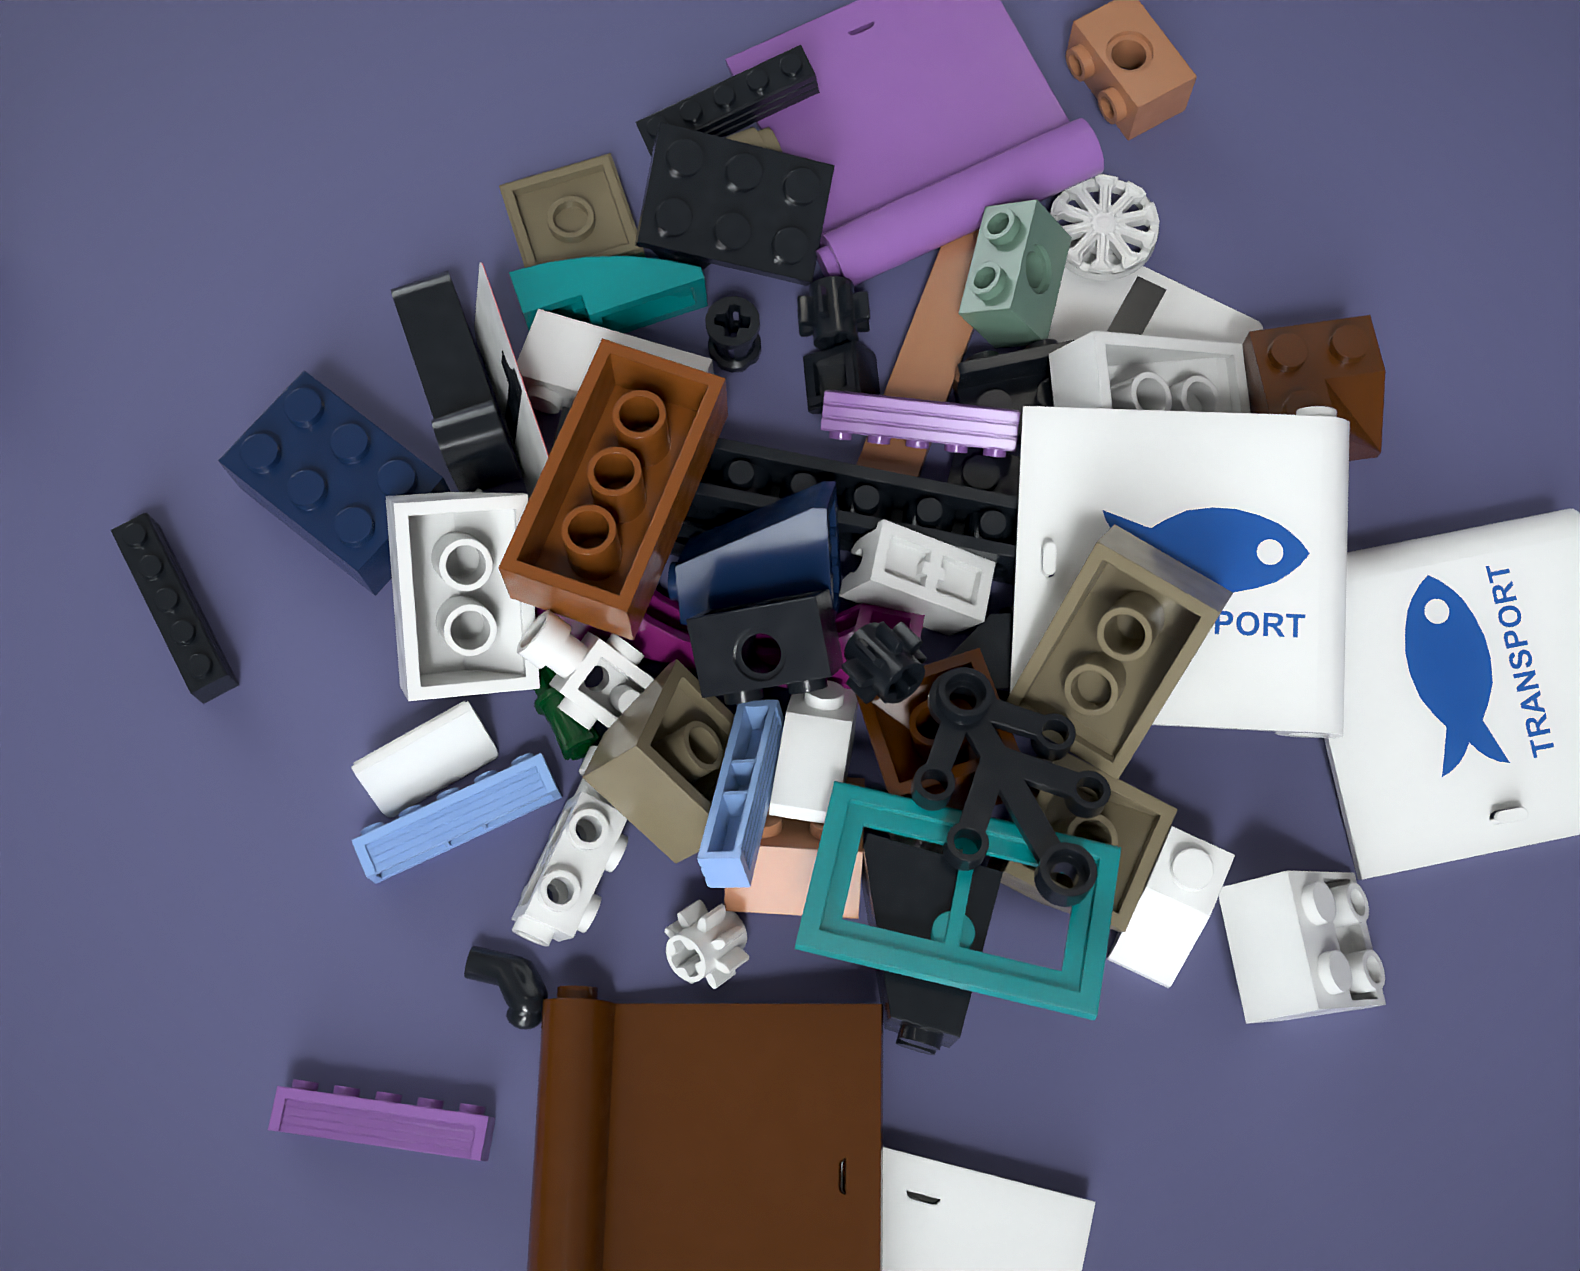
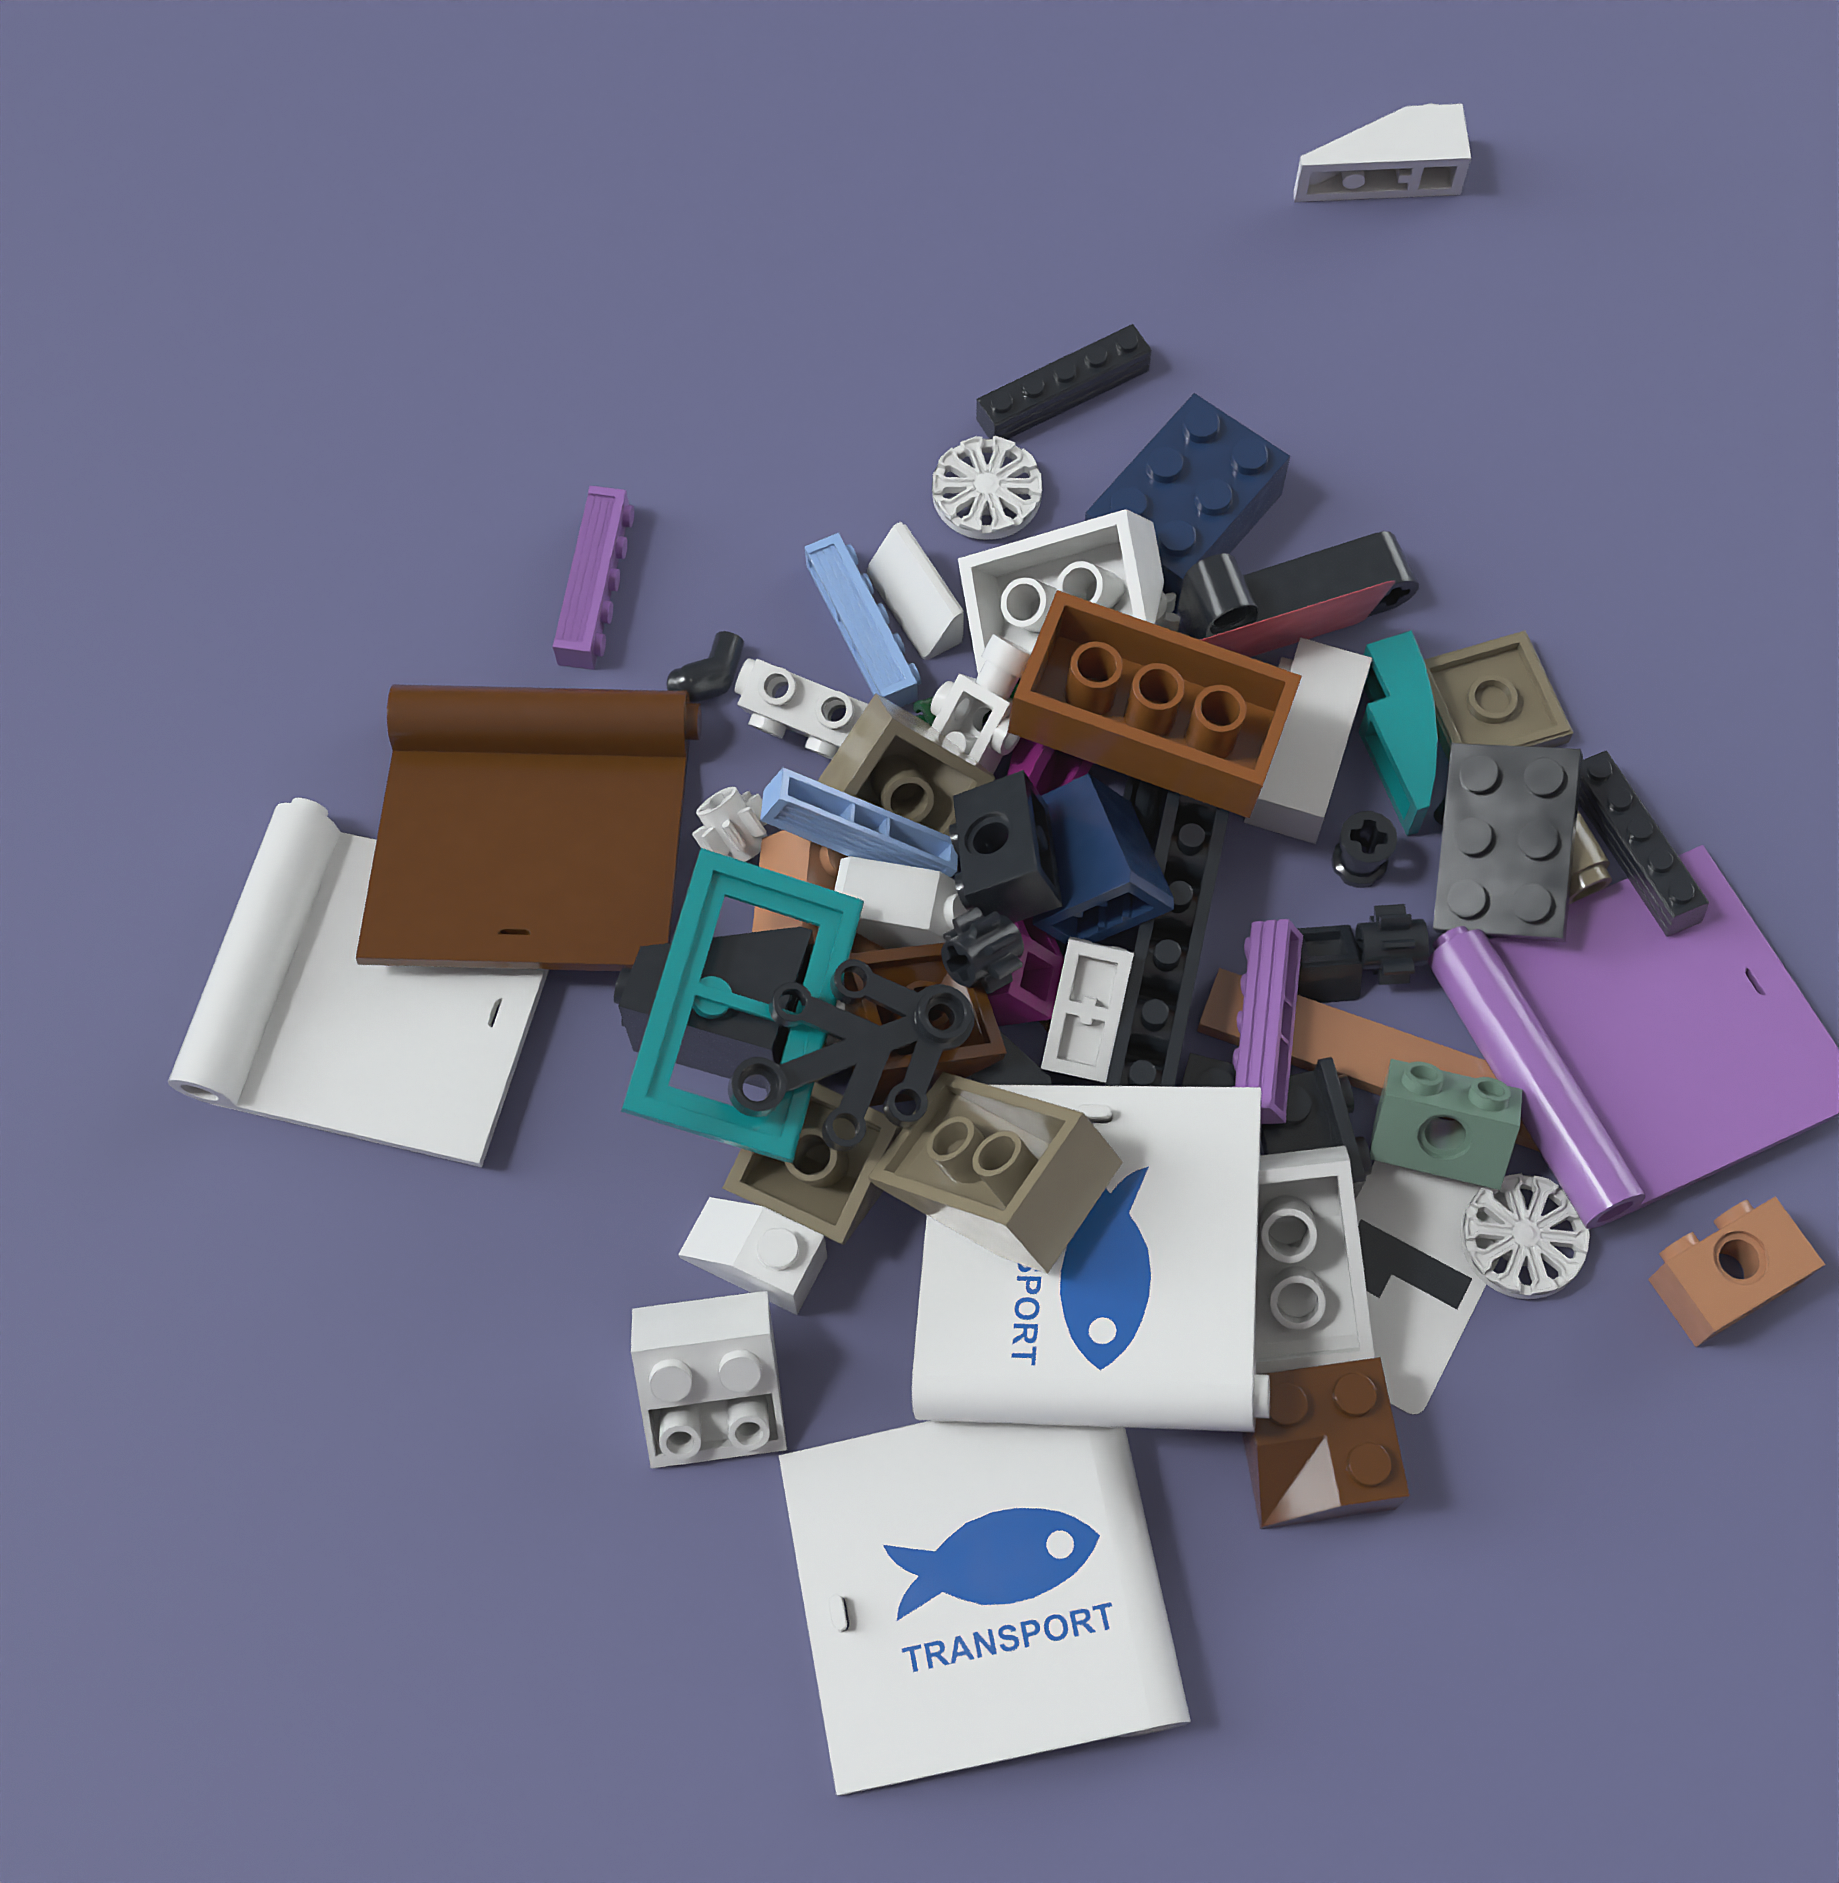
camera: 90 degrees right, 5 degrees down
(297, 688) = (987, 488): none -> white wheel

